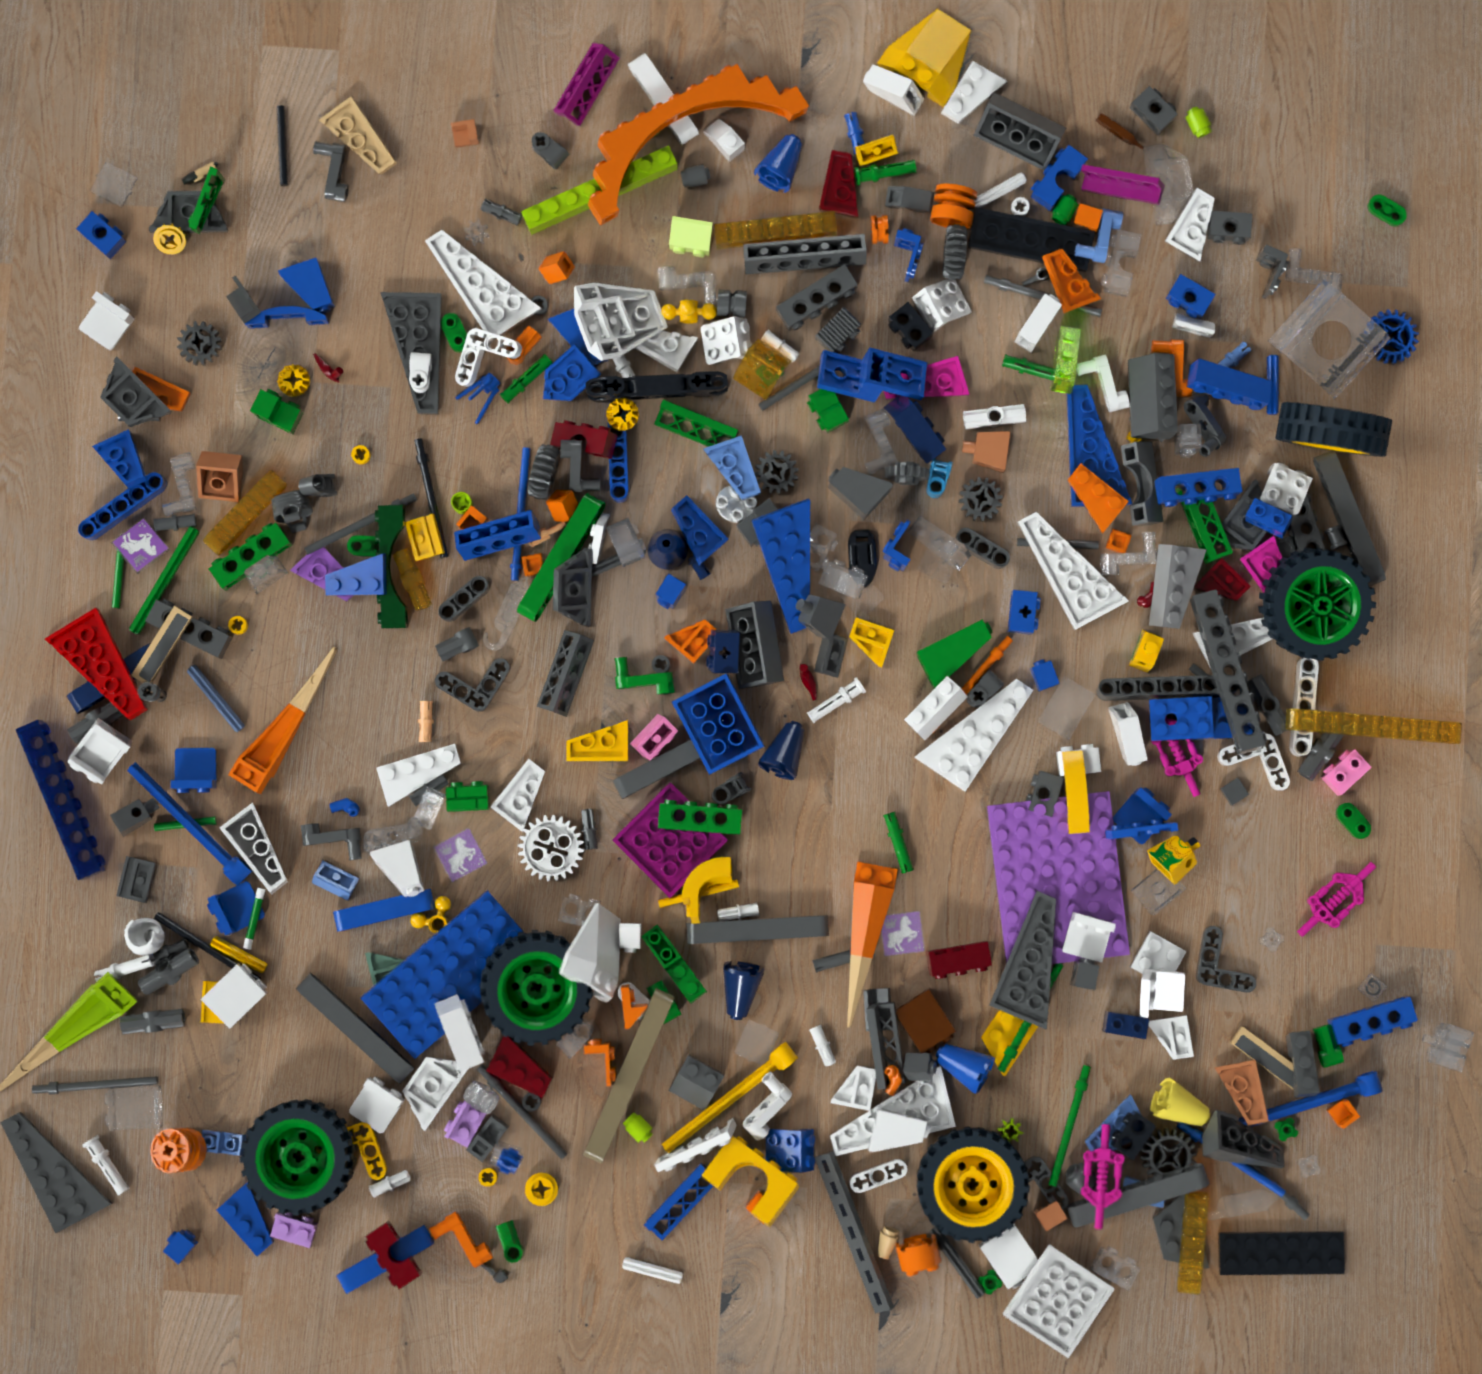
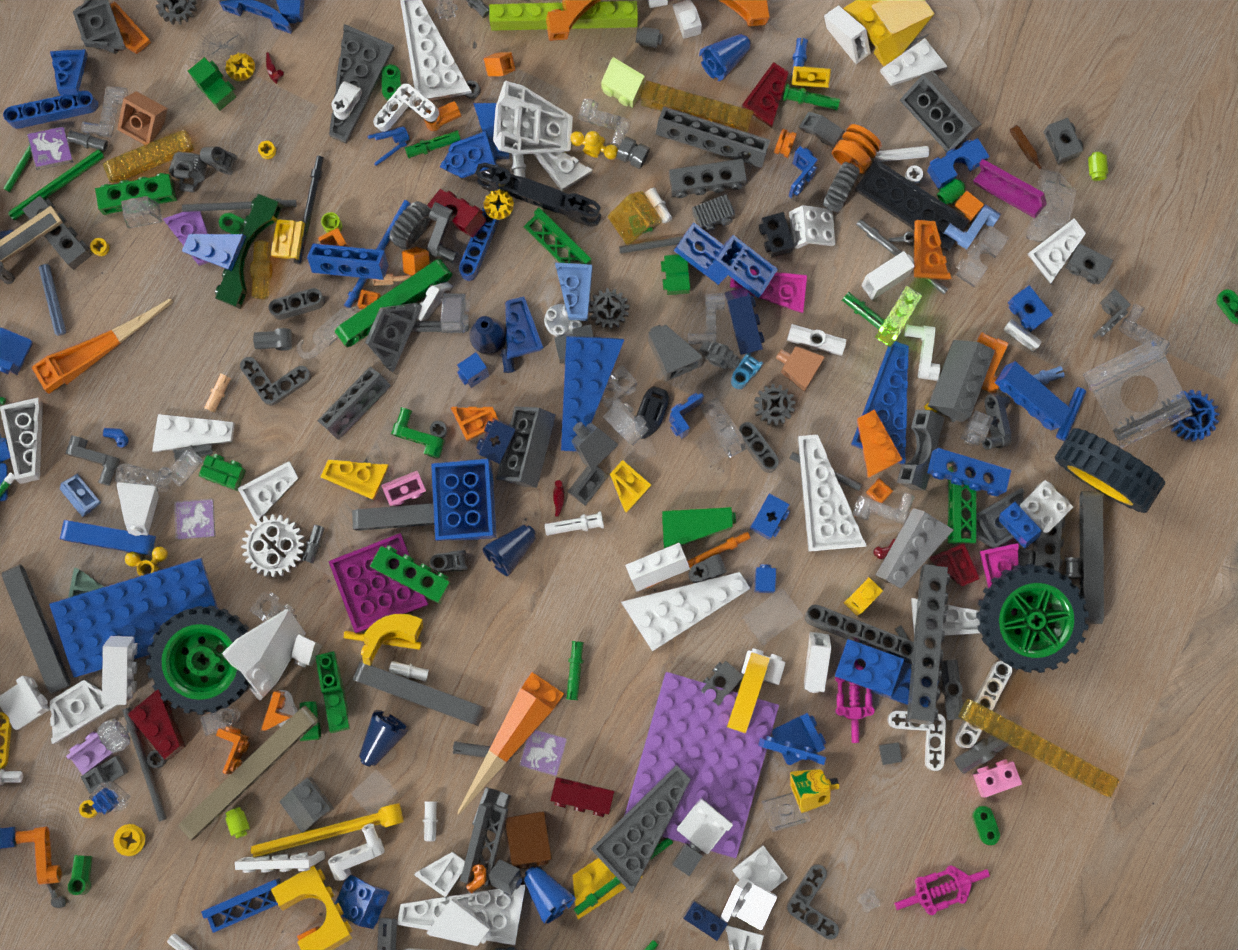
camera: 25 degrees right, 5 degrees down
(726, 339) = (615, 180): white bracket -> none

